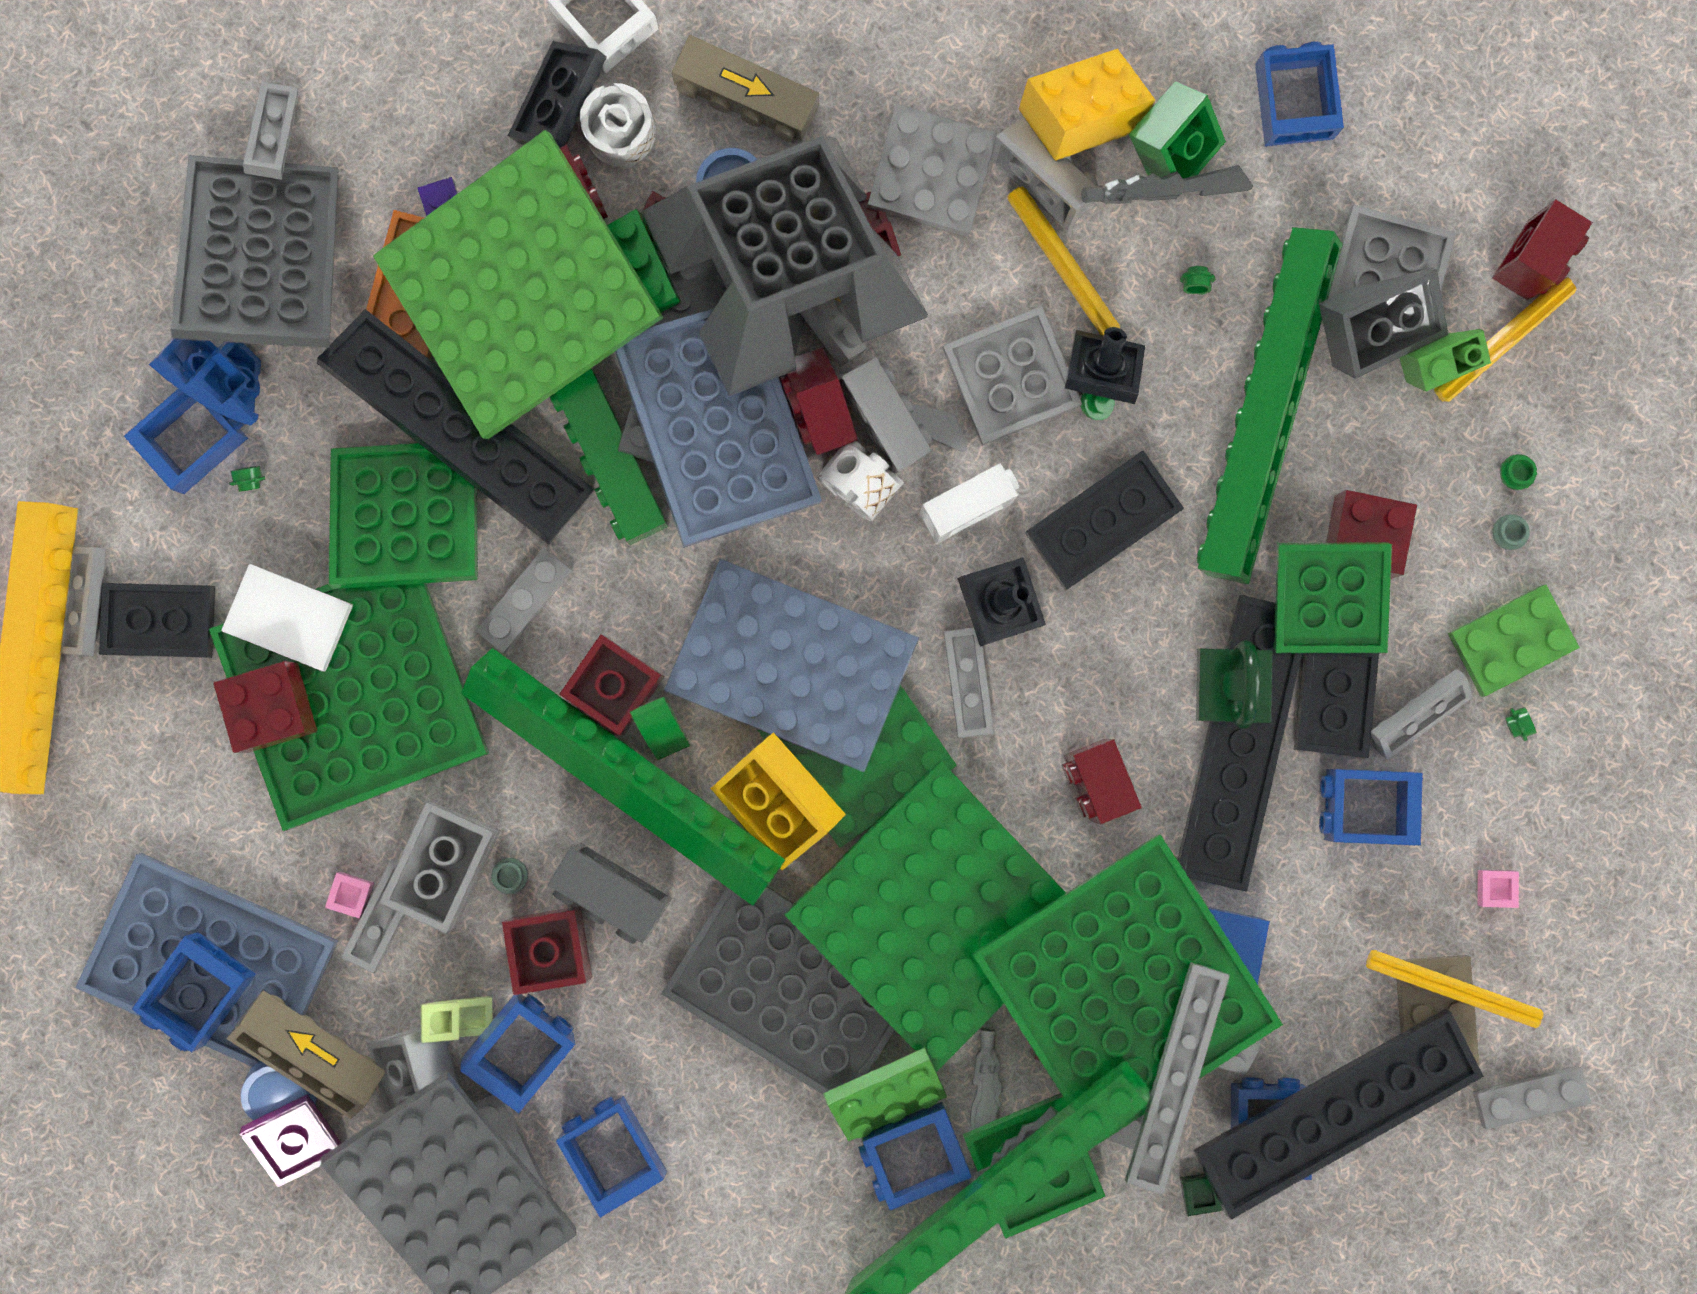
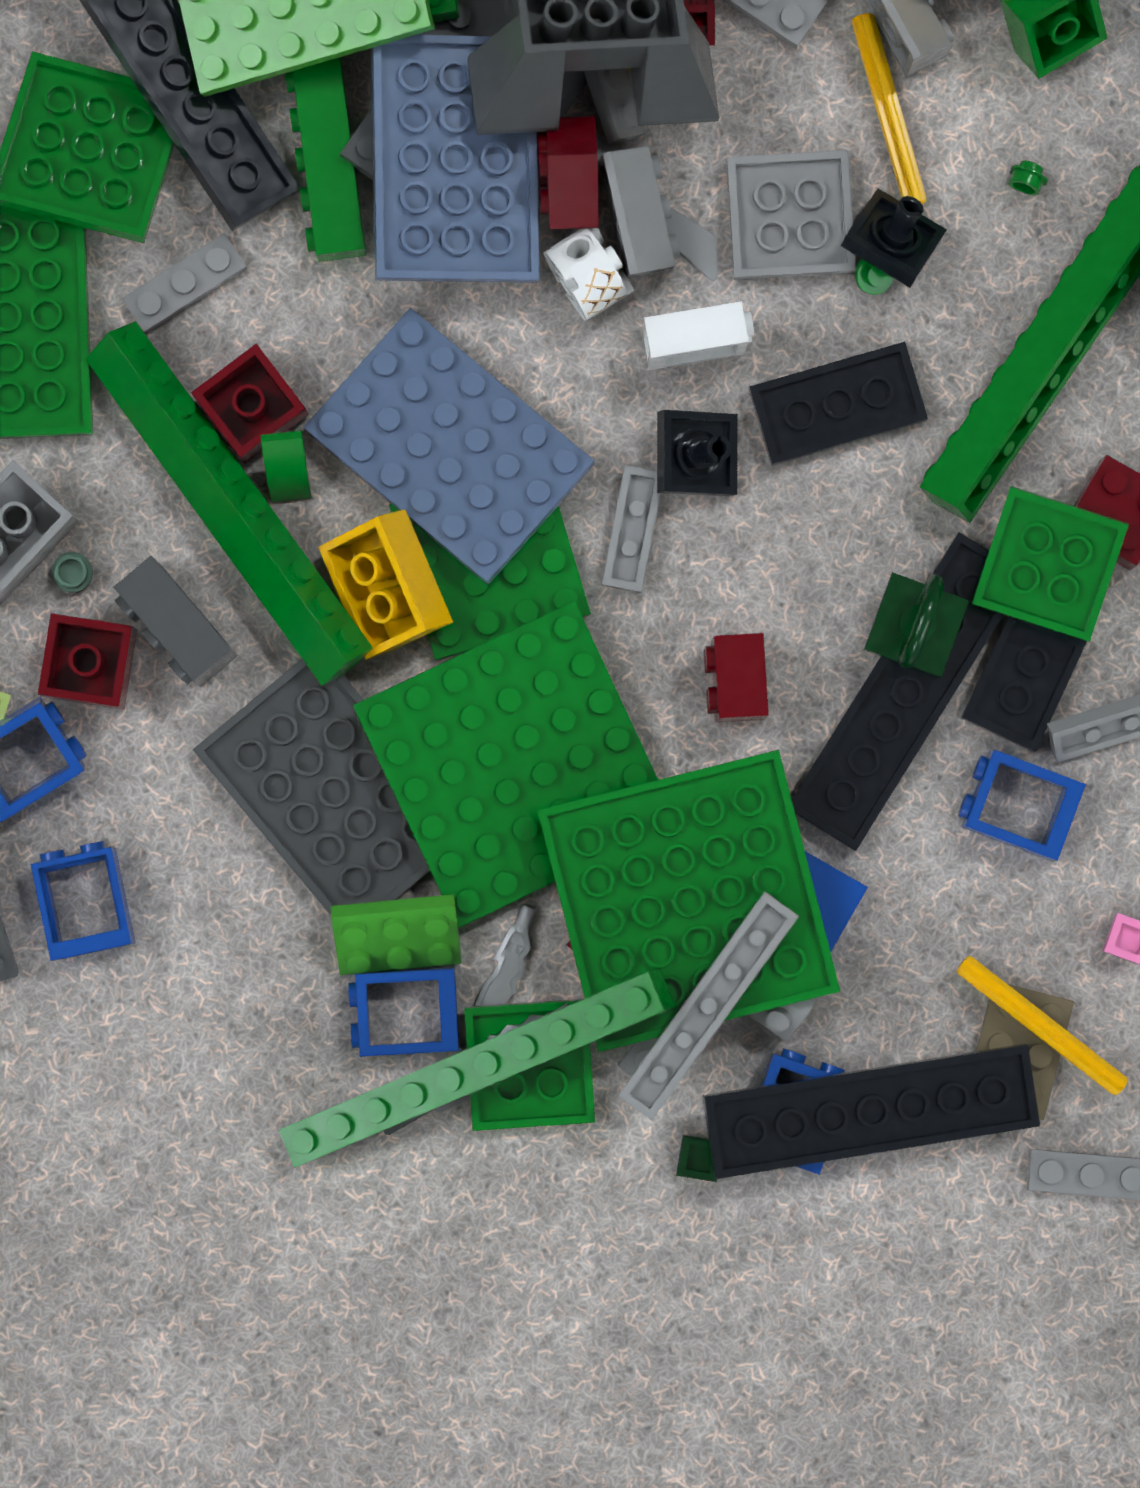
camera: 20 degrees right, 0 degrees up
(1168, 187) = (1026, 66): dark grey sword -> none

